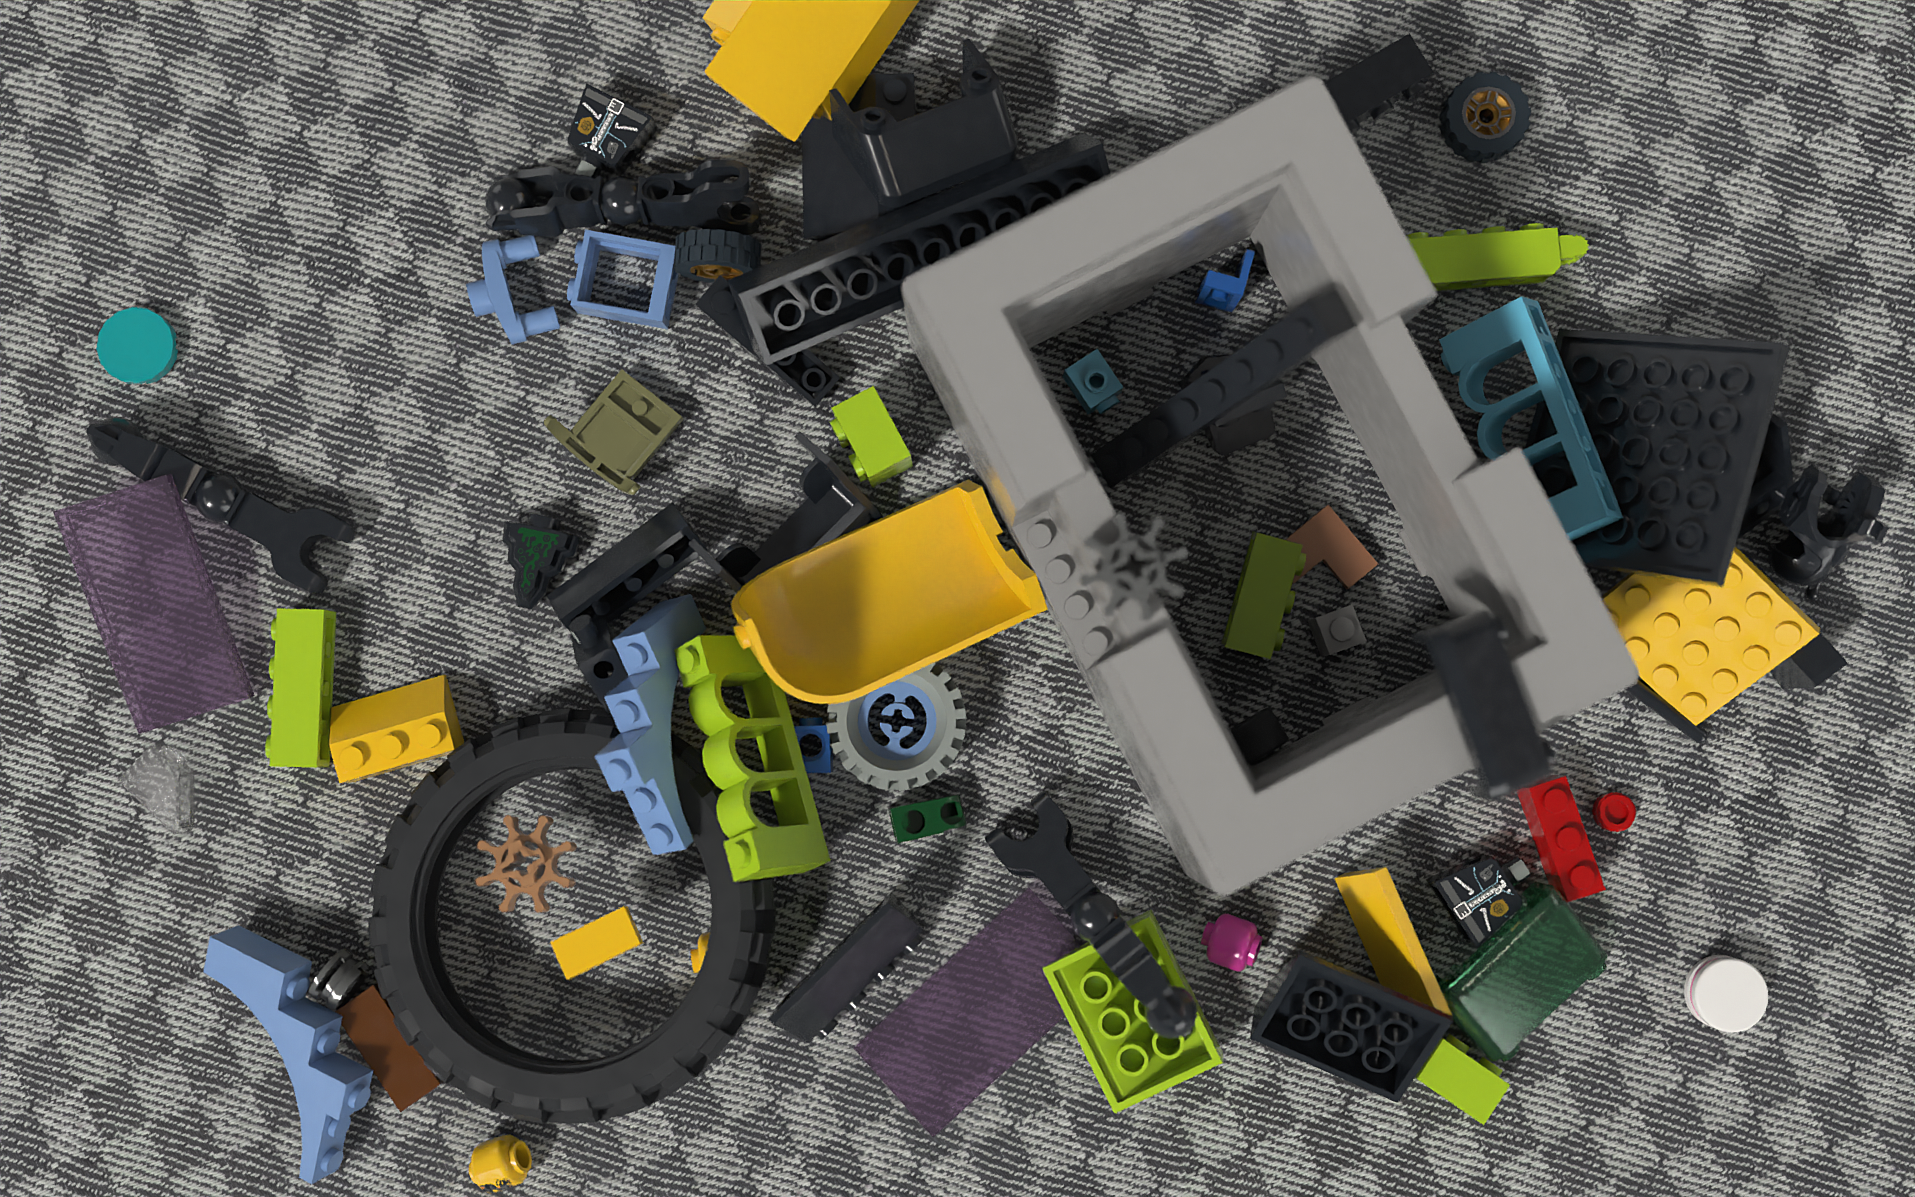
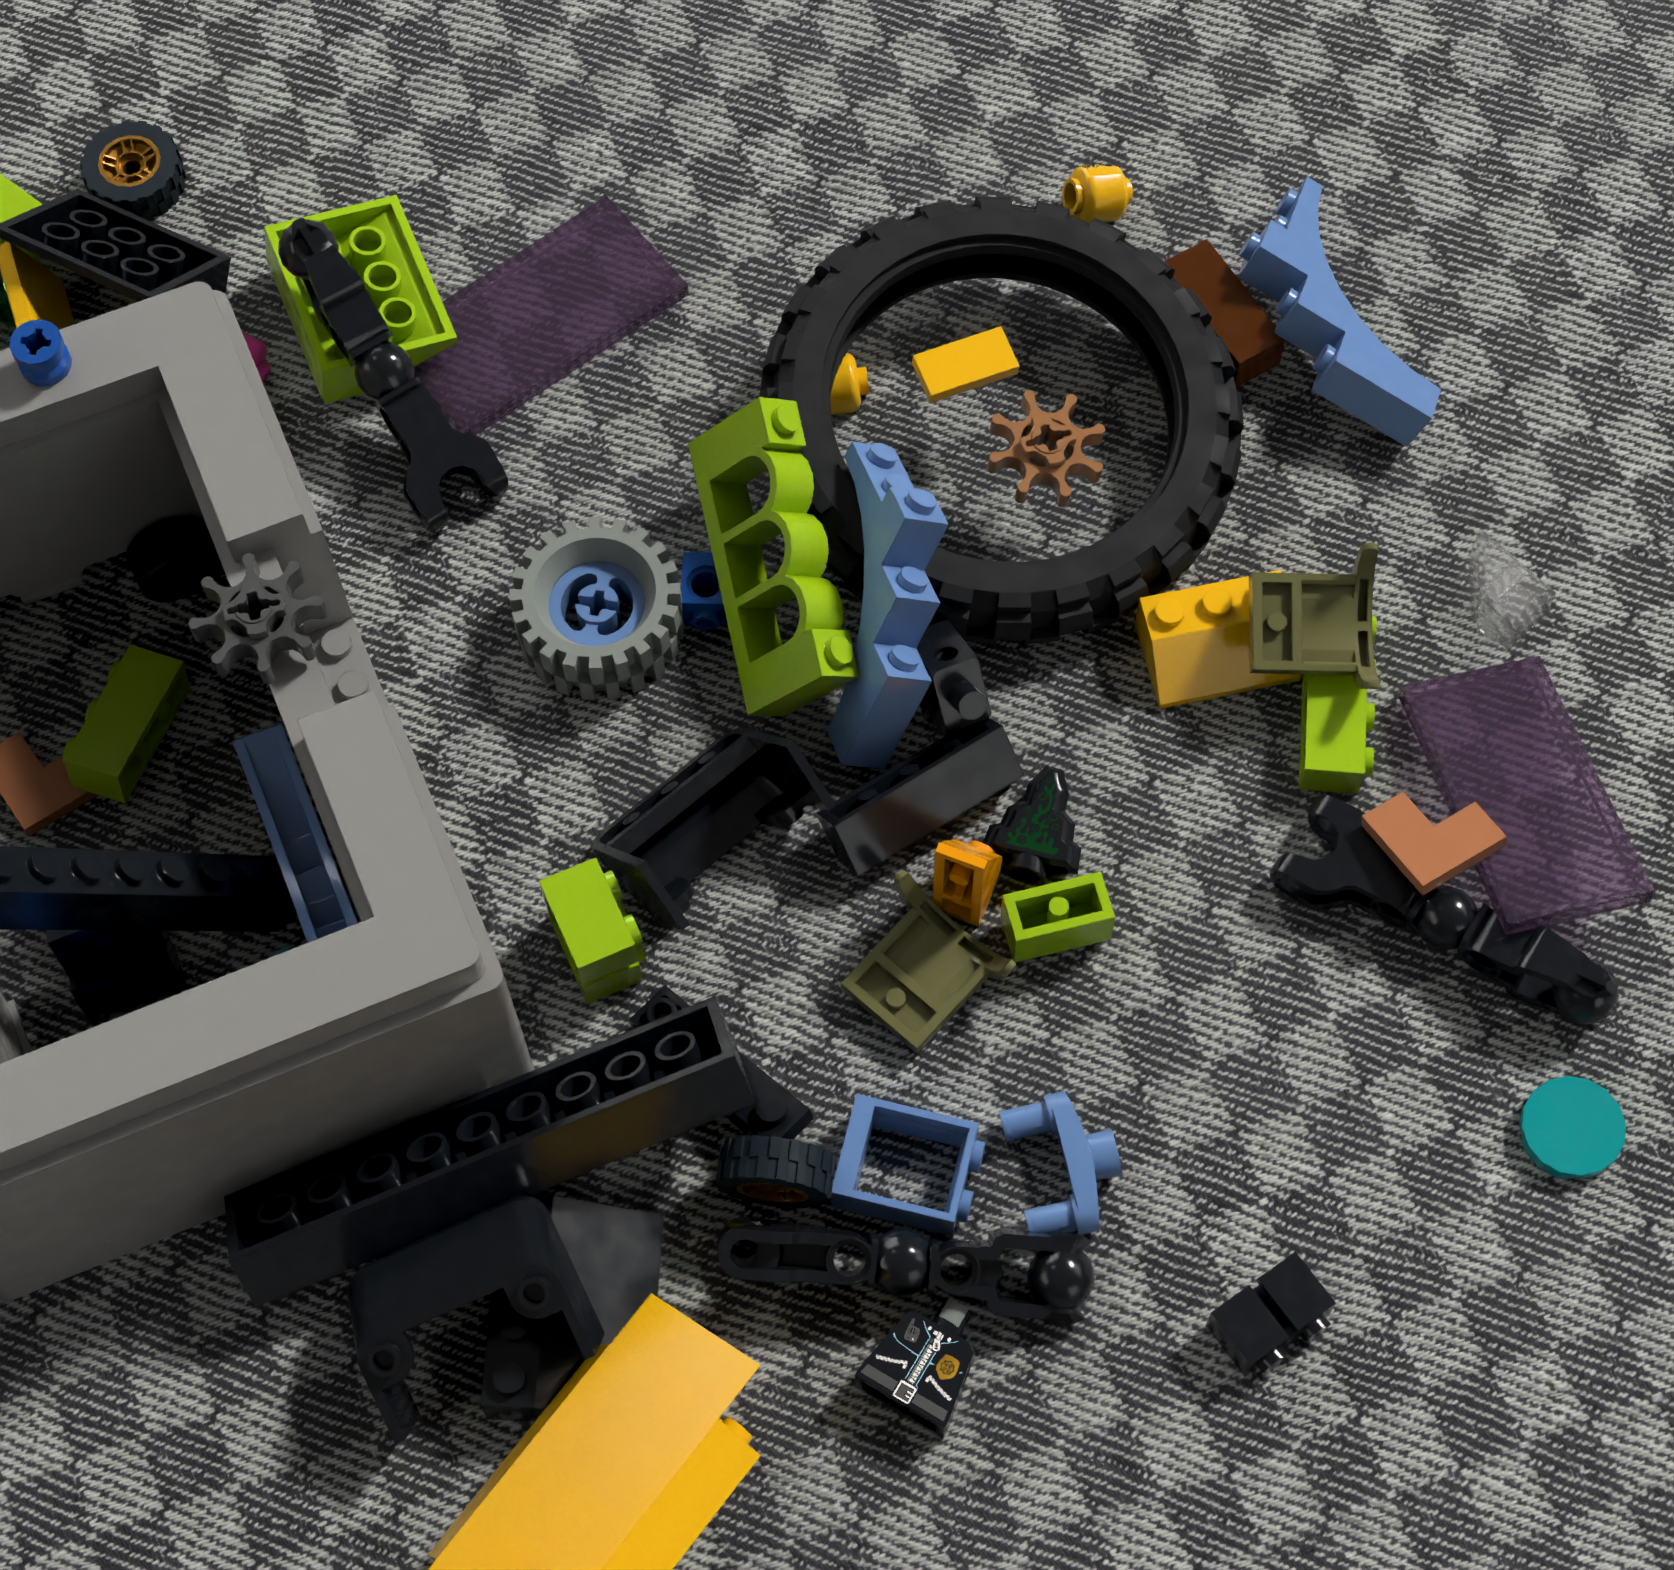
camera: 175 degrees left, 20 degrees down
(224, 535) = (1429, 852): none -> nougat tile
(308, 724) = (1315, 622): none -> olive piece
(339, 980) = (1281, 376): dark grey wheel -> none
(341, 197) = (1277, 1312): none -> black piece
(517, 476) = (1057, 917): none -> lime brick
(584, 502) = (965, 878): none -> light orange slope
(847, 970) = (686, 355): black slope -> none
(886, 598) = (591, 723): yellow panel -> none
(926, 818) = (574, 501): dark green leg -> none
(1060, 372) = (295, 832): none -> medium blue arch
(1337, 631) = (43, 679): light grey brick -> none
(1345, 790) = (50, 362): none -> blue wheel
(1378, 1137) = (136, 149): none -> black wheel

